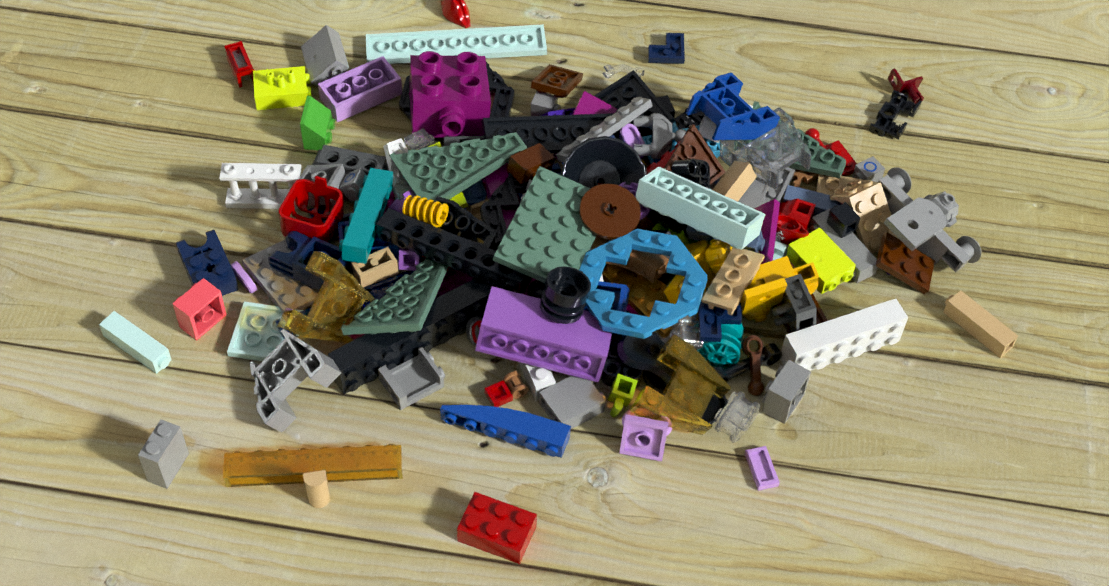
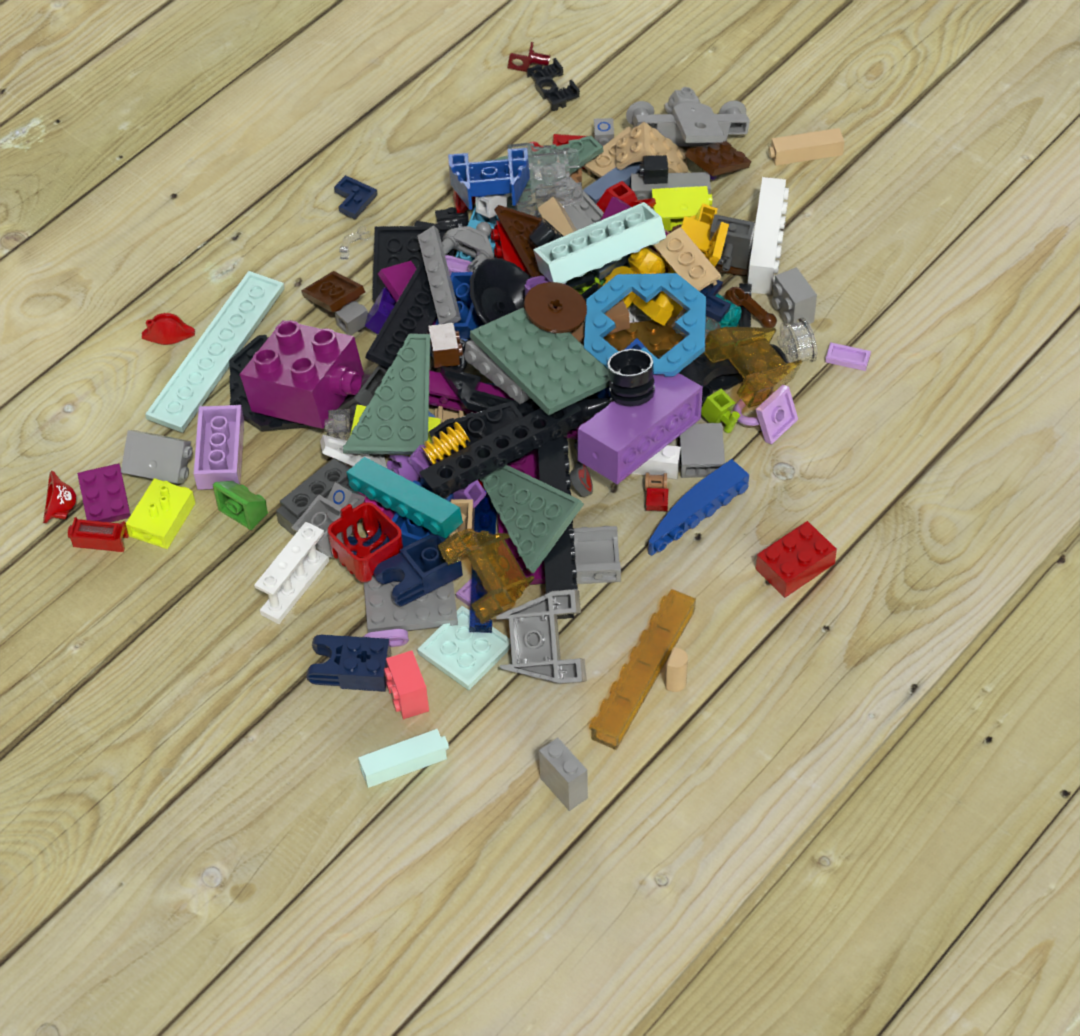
camera: 55 degrees left, 0 degrees up
(256, 27) = (59, 499): none -> red hat
(279, 50) = (104, 494): none -> magenta plate

